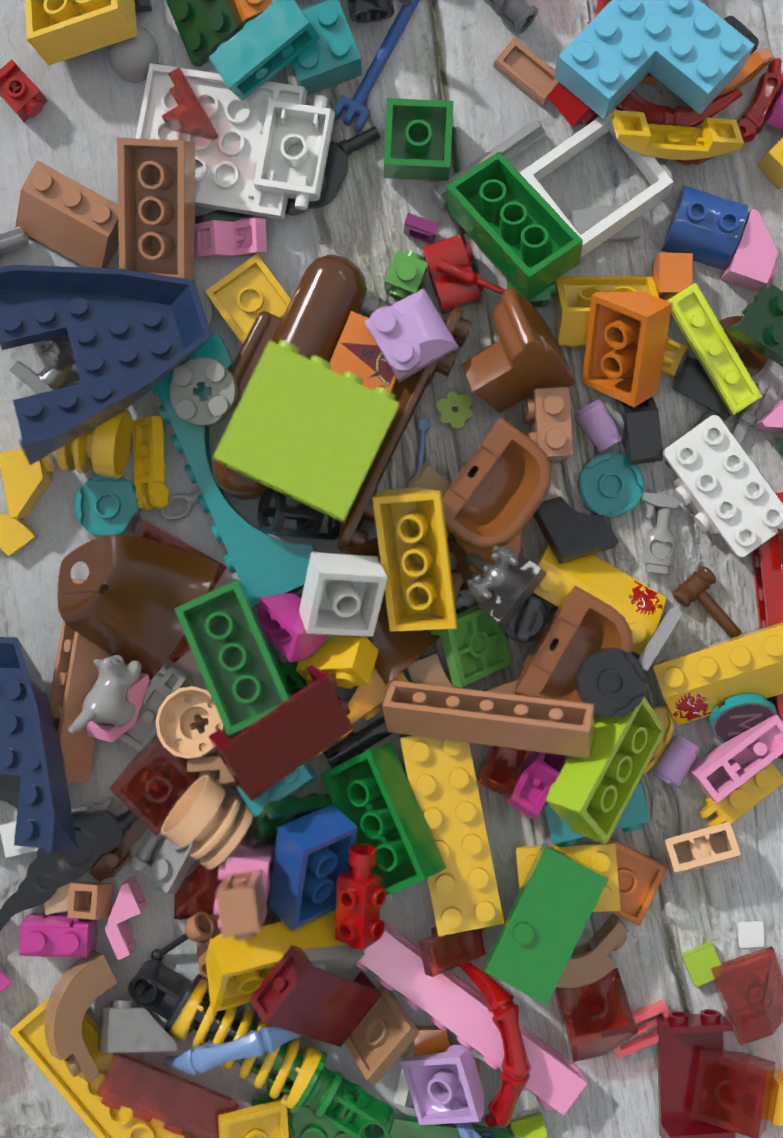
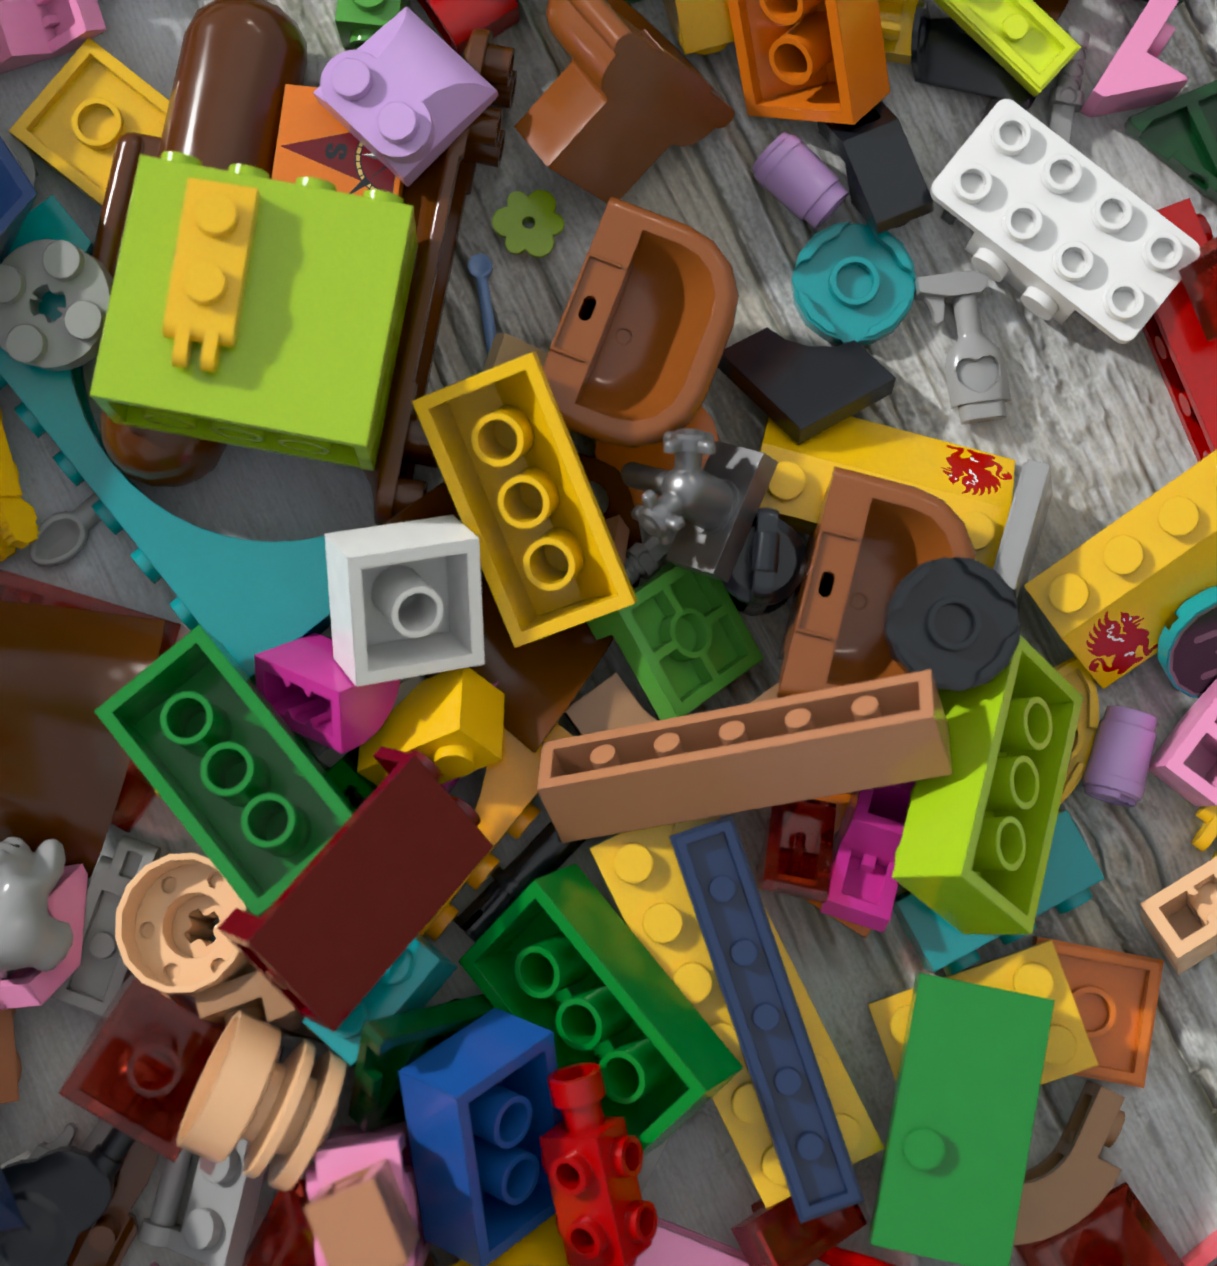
camera: 20 degrees left, 5 degrees down
(289, 410) = (210, 270): none -> yellow hinge
(307, 519) = (303, 484): black piece -> none
(464, 846) = (766, 1019): none -> dark blue tile
(550, 422) = (706, 188): nougat brick -> none
(695, 588) = (1063, 428): reddish brown piece -> none

